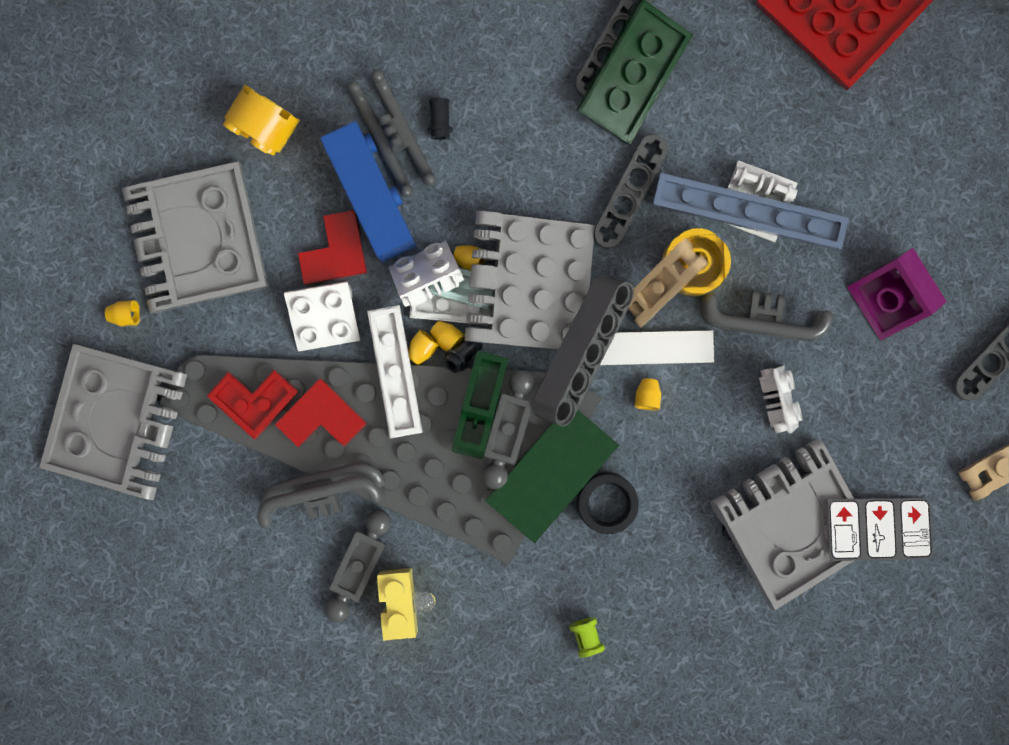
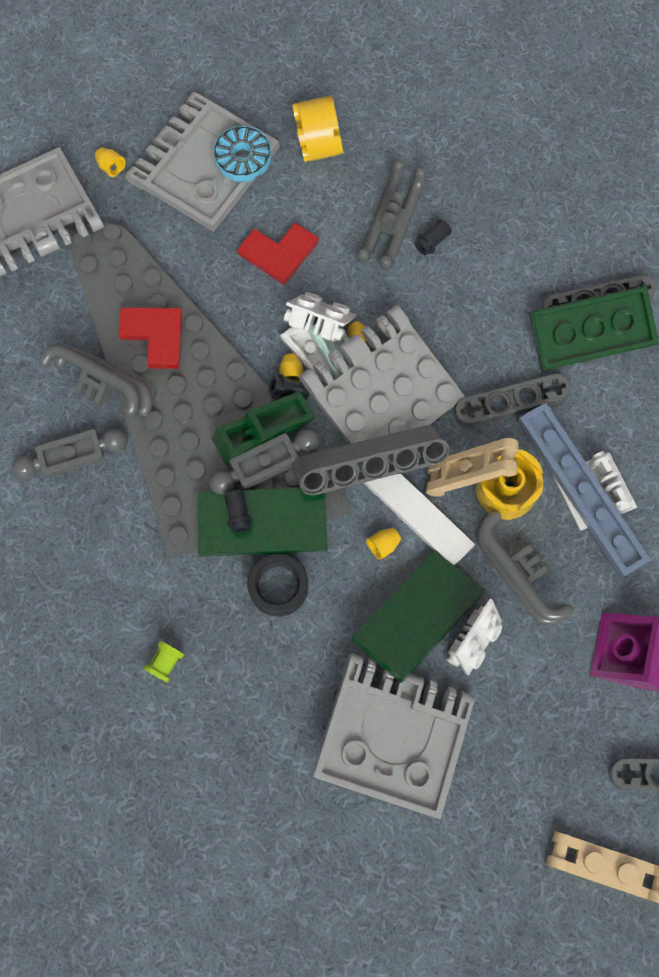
camera: 45 degrees right, 15 degrees down
(205, 198) = (239, 139): none -> tile
(254, 409) = (121, 289): red tile -> none
(322, 316) = (227, 279): white hinge -> none
(368, 191) = (338, 230): blue brick -> none
(394, 371) = (232, 354): white tile -> none
(402, 603) = (68, 503): light yellow piece -> none
(421, 347) = (267, 360): yellow hose -> none
(532, 487) = (239, 519): none -> black pin
(729, 425) = (417, 616): none -> dark green tile
(880, 529) = (452, 809): sticker -> none

